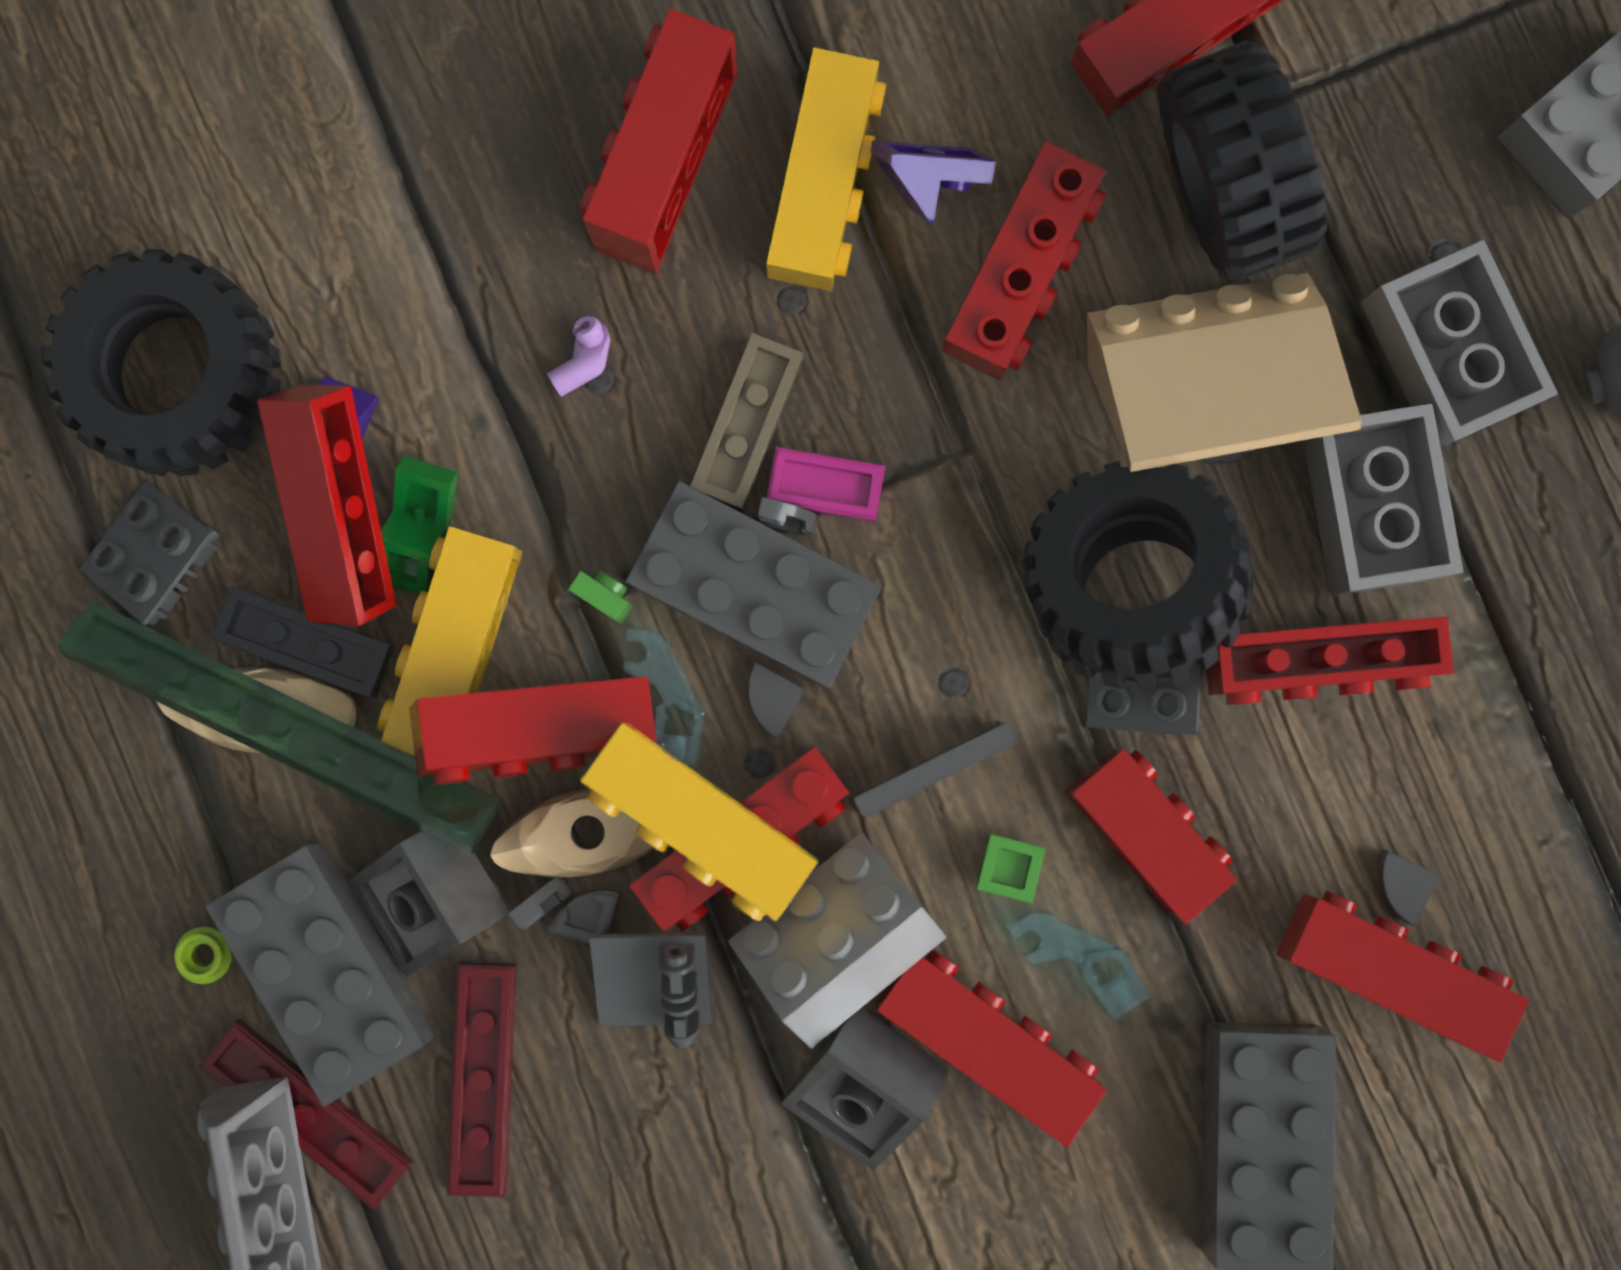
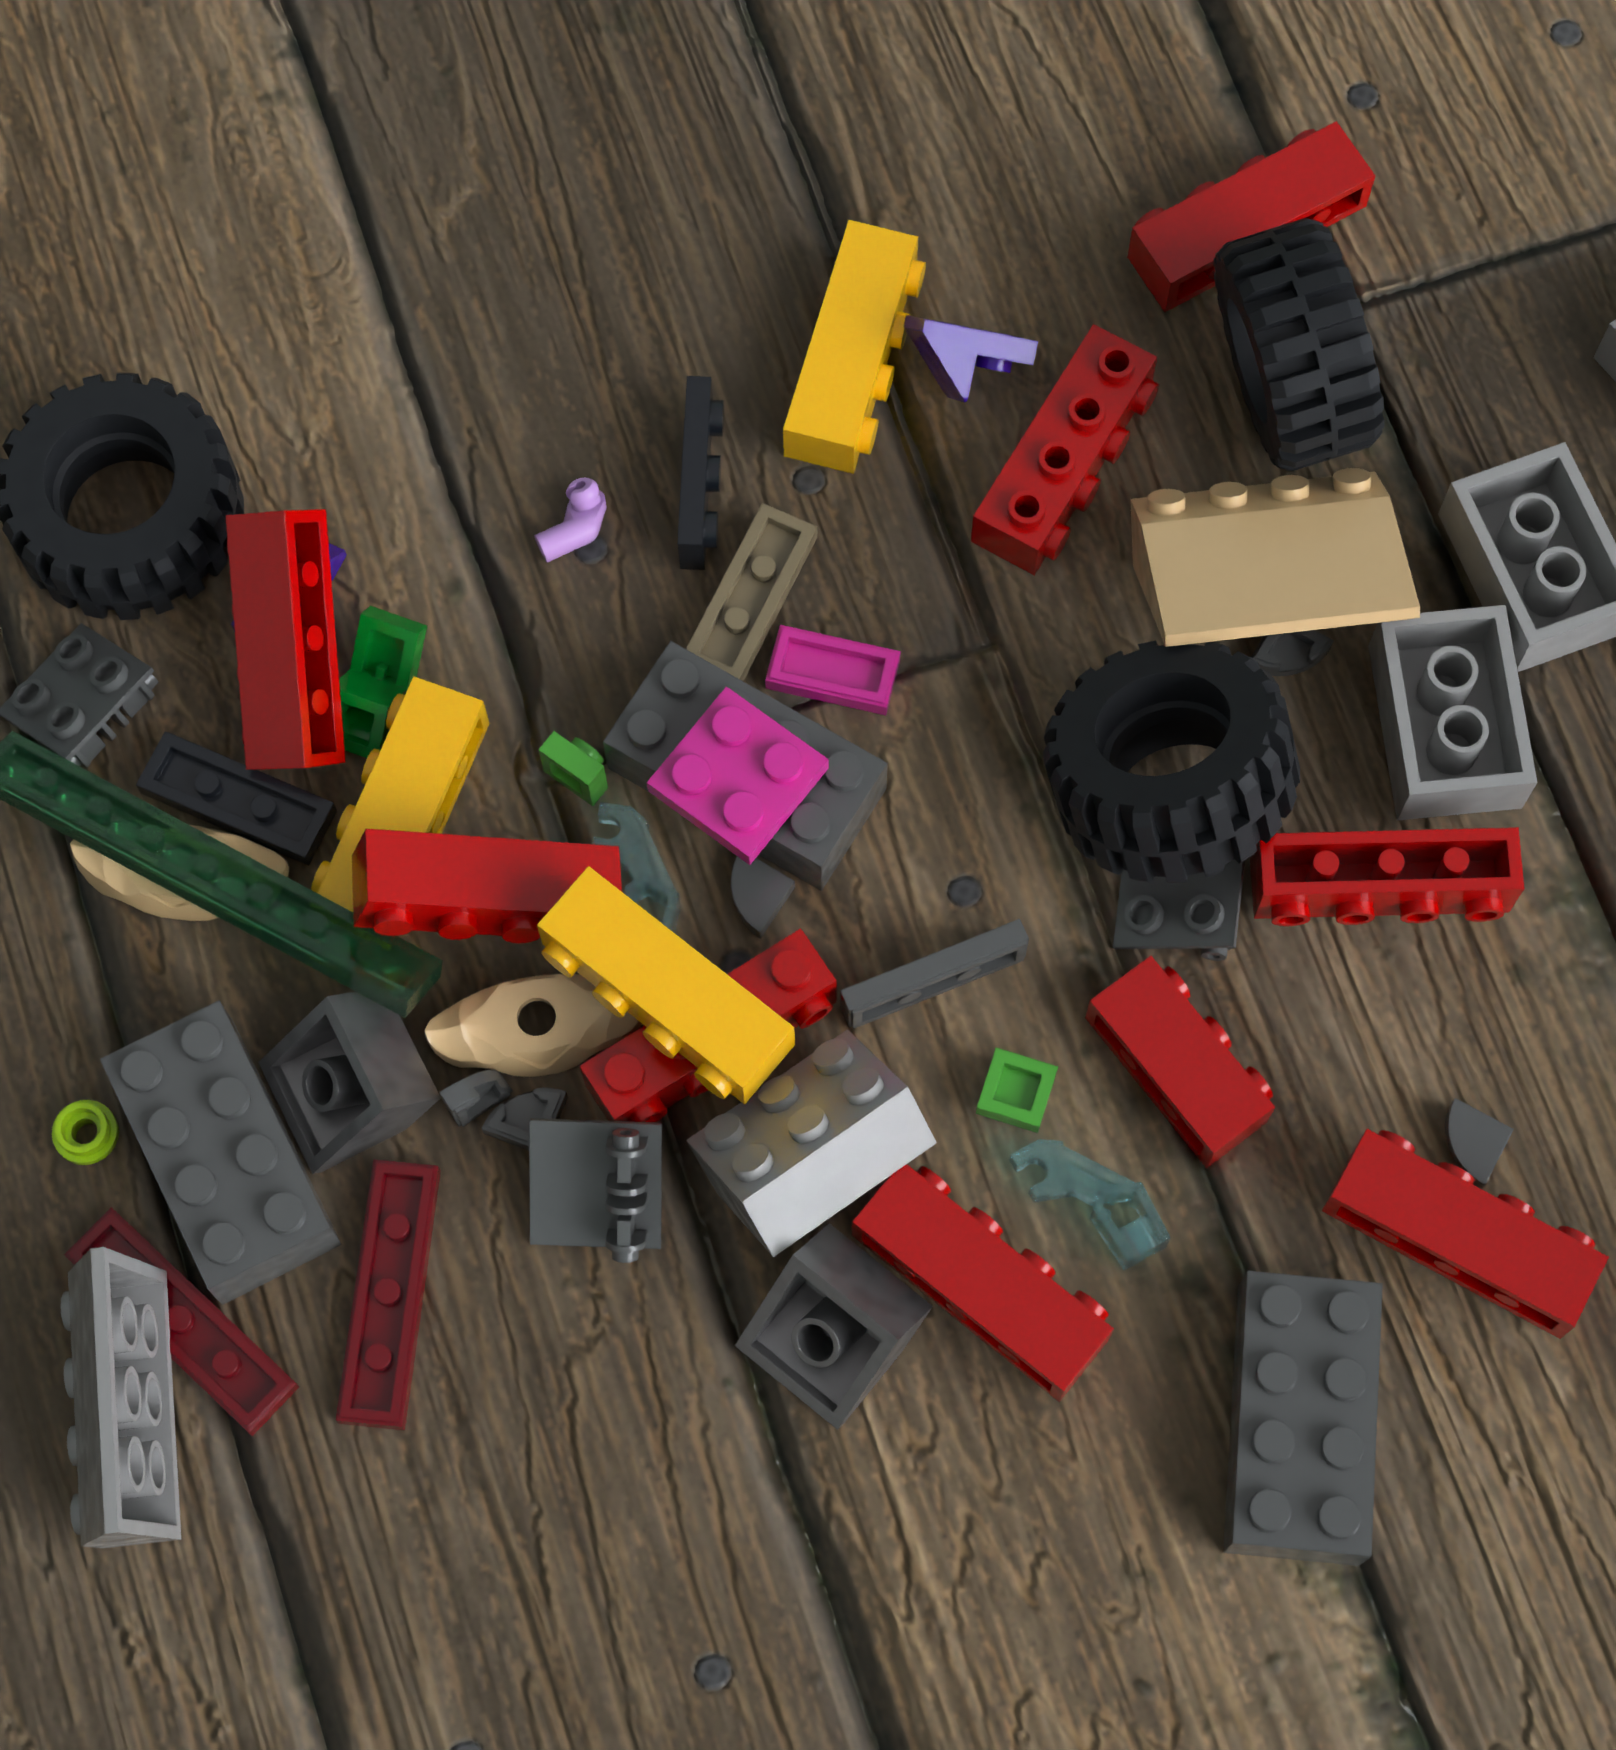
camera: 10 degrees right, 15 degrees down
(660, 140) = (678, 303): red brick -> none
(692, 304) = (699, 473): none -> black plate
(749, 612) = (738, 775): none -> dark pink plate
(786, 517) = (788, 692): dark grey tile -> none

